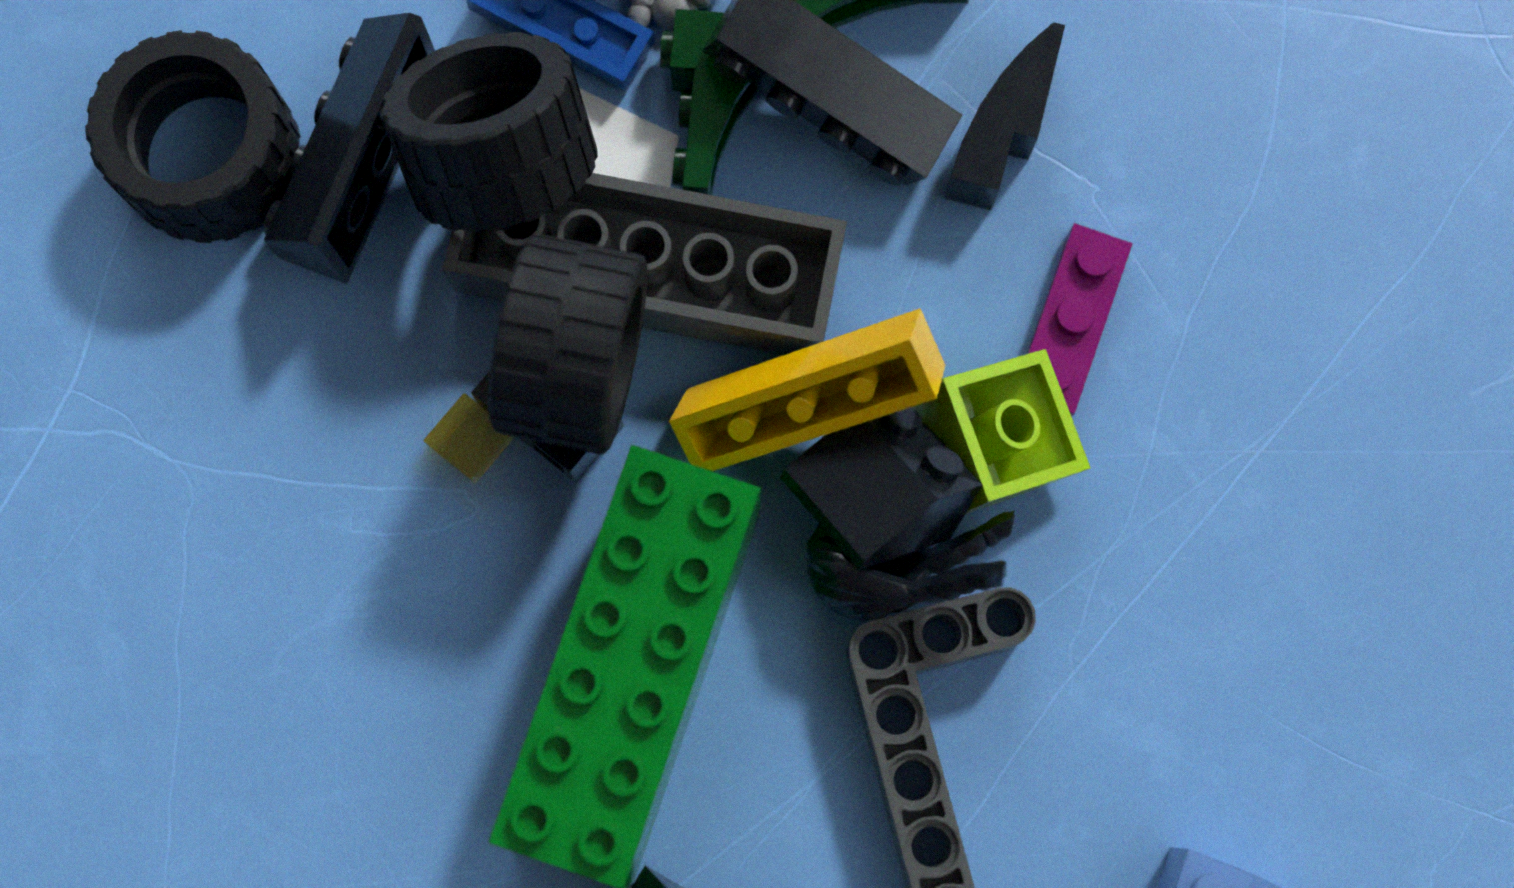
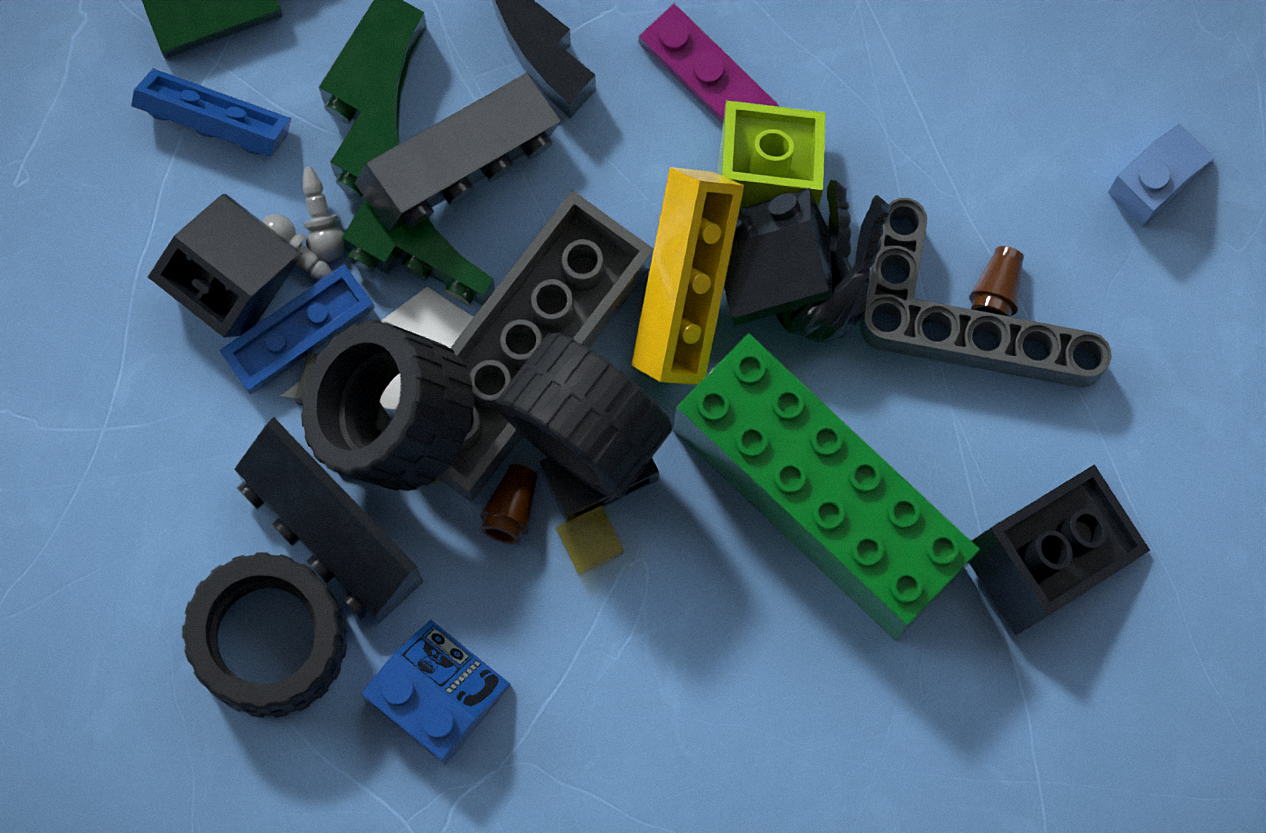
camera: 65 degrees left, 0 degrees up
(217, 346) = (435, 690): none -> blue slope
(459, 332) = (510, 506): none -> reddish brown cone
(987, 767) = (999, 283): none -> reddish brown cone

